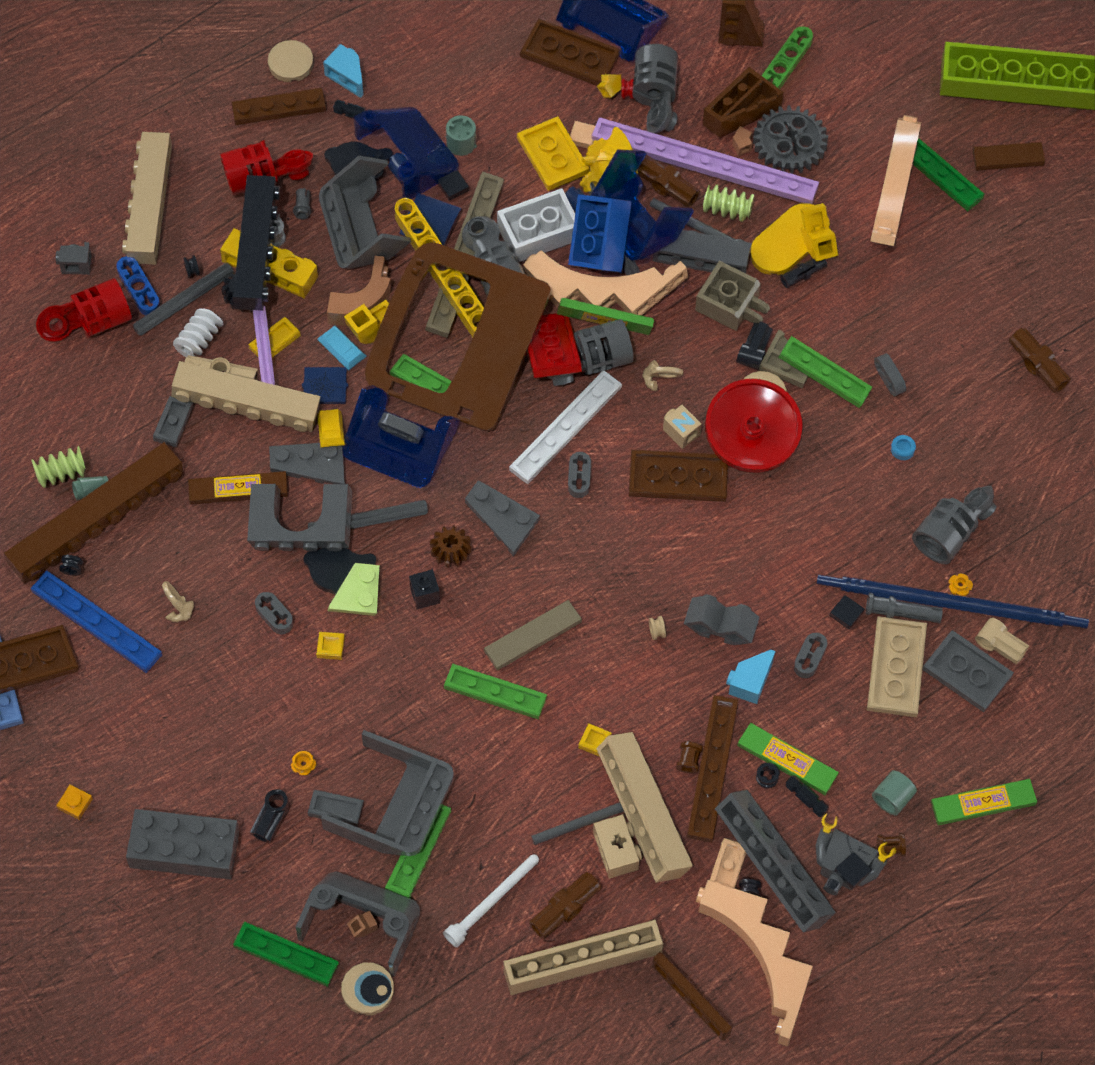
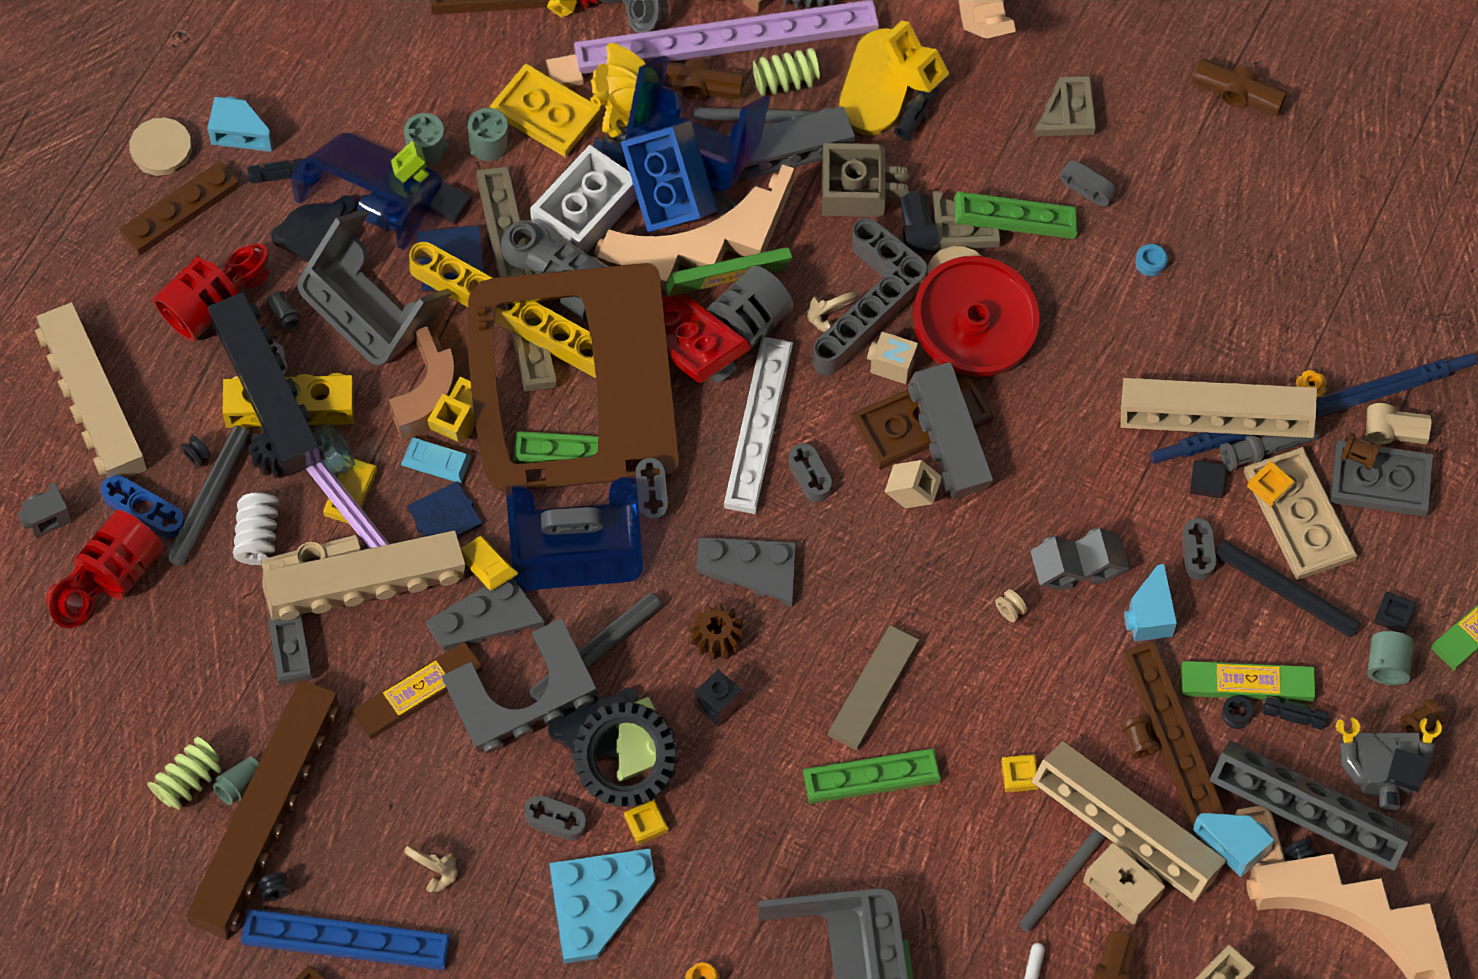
camera: 30 degrees left, 0 degrees up
(268, 678) = (597, 899): none -> medium azure plate
(277, 307) = (335, 450): none -> clear light blue plate
(313, 585) = (585, 754): none -> black tyre
(438, 145) = (410, 163): none -> lime tile
(460, 432) = (643, 489): none -> dark grey beam
(504, 151) = (488, 134): none -> sand green piece
(640, 515) = (913, 484): none -> tan brick
(687, 492) = (950, 431): none -> dark grey brick
(691, 382) = (875, 300): none -> dark grey beam
(706, 855) = (1235, 838): none -> medium azure slope
(854, 712) = (1287, 588): none -> black axle
(881, 567) = (1218, 407): none -> tan brick
(885, 635) = (1270, 483): none -> light orange plate
(909, 319) = (1068, 109): none -> dark tan wing
(920, 765) = (1394, 612): none -> black tile
(951, 524) = (1265, 319): dark grey cylinder -> none
(960, 644) = (1360, 451): none -> reddish brown bush

